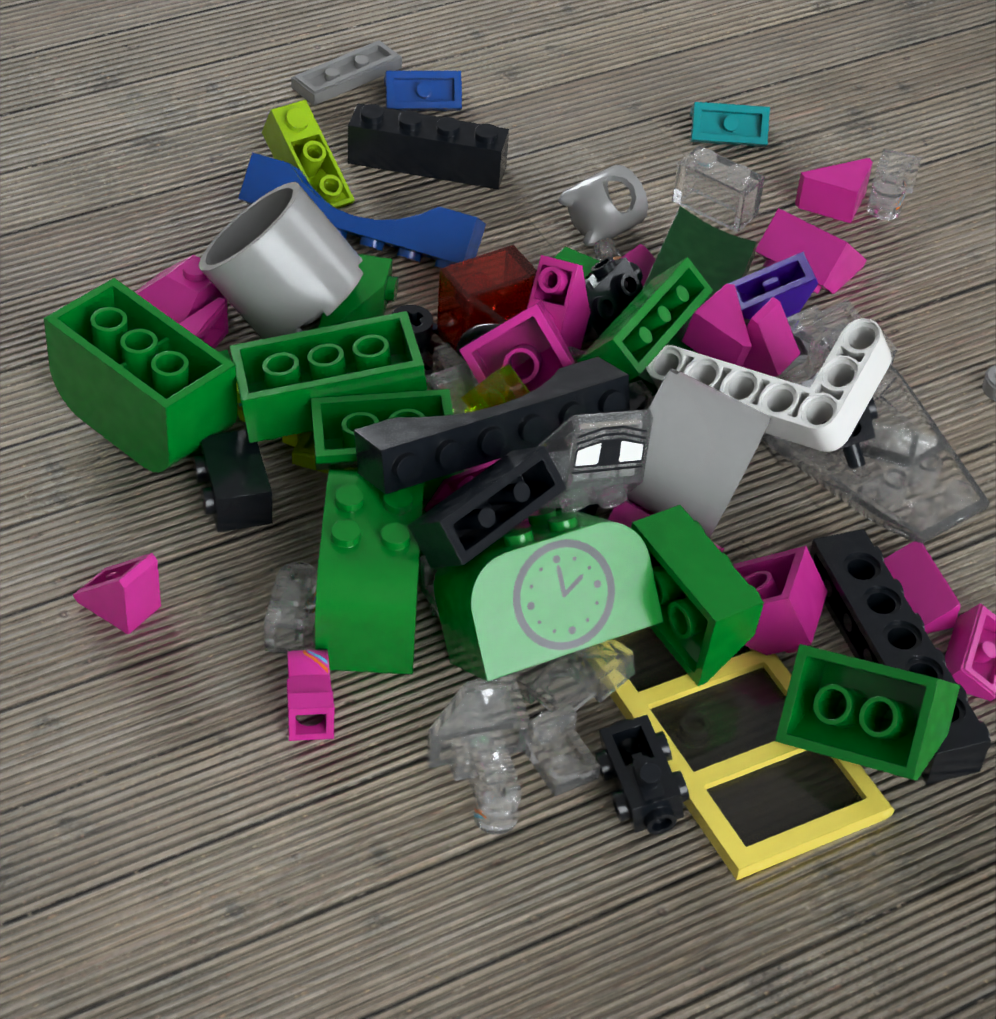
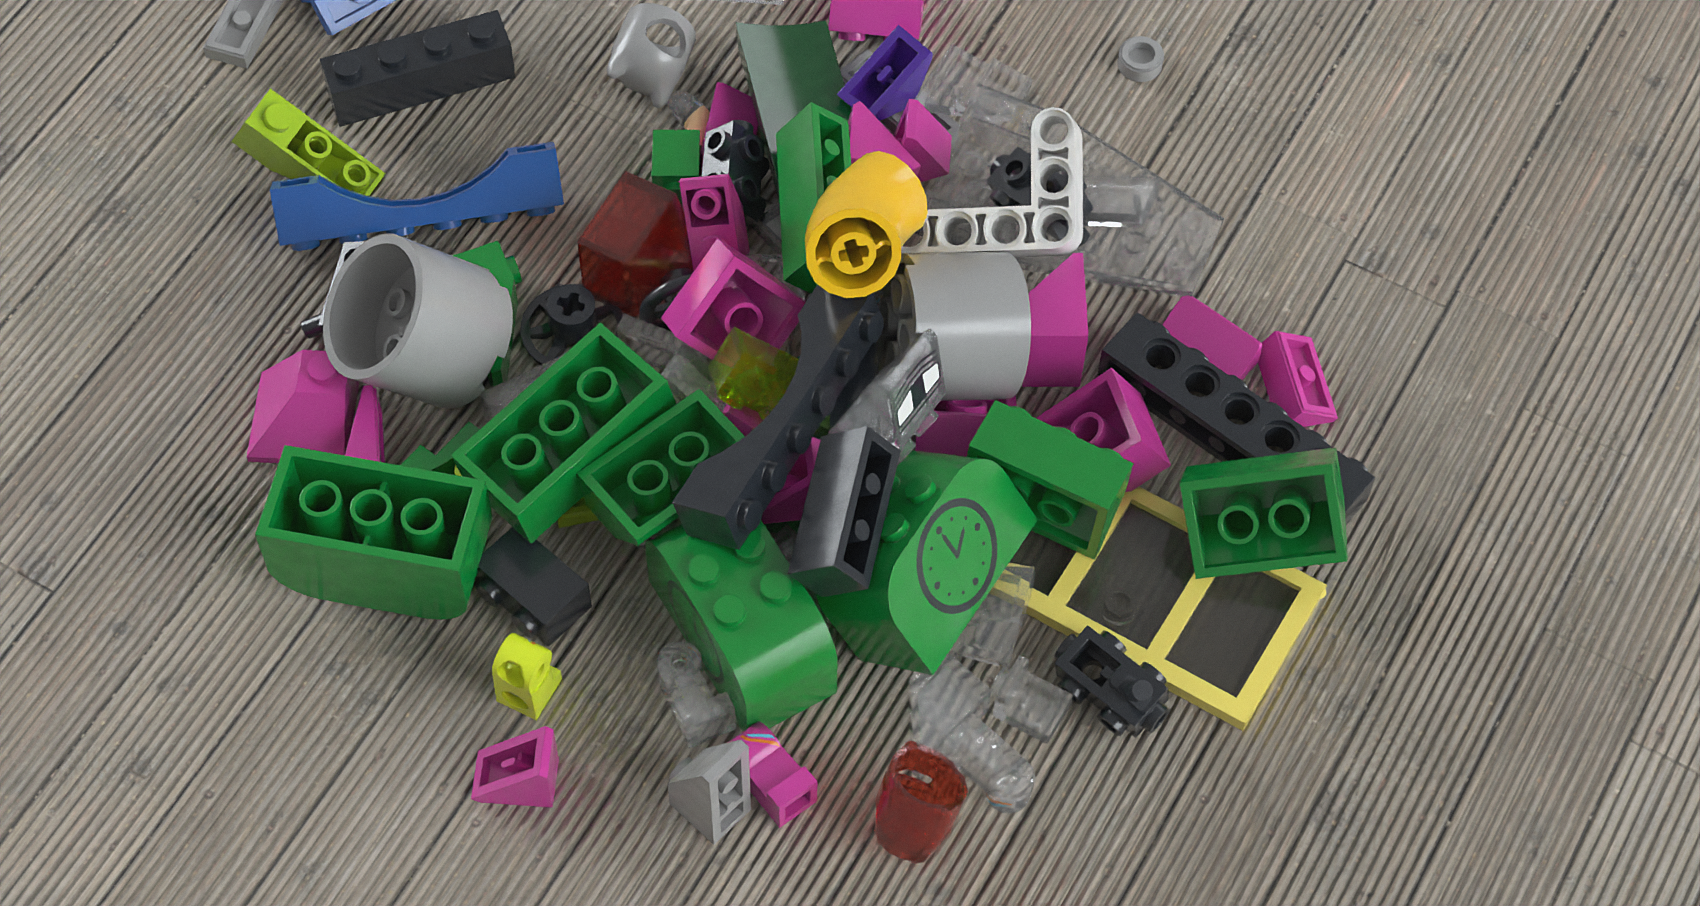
camera: 30 degrees left, 15 degrees up
(173, 527) = (524, 675): none -> neon yellow leg
(247, 666) = (713, 788): none -> light grey slope
(393, 773) = (916, 814): none -> clear red helmet
(652, 327) = (862, 225): none -> yellow brick
(784, 502) = (1058, 327): none -> dark pink slope

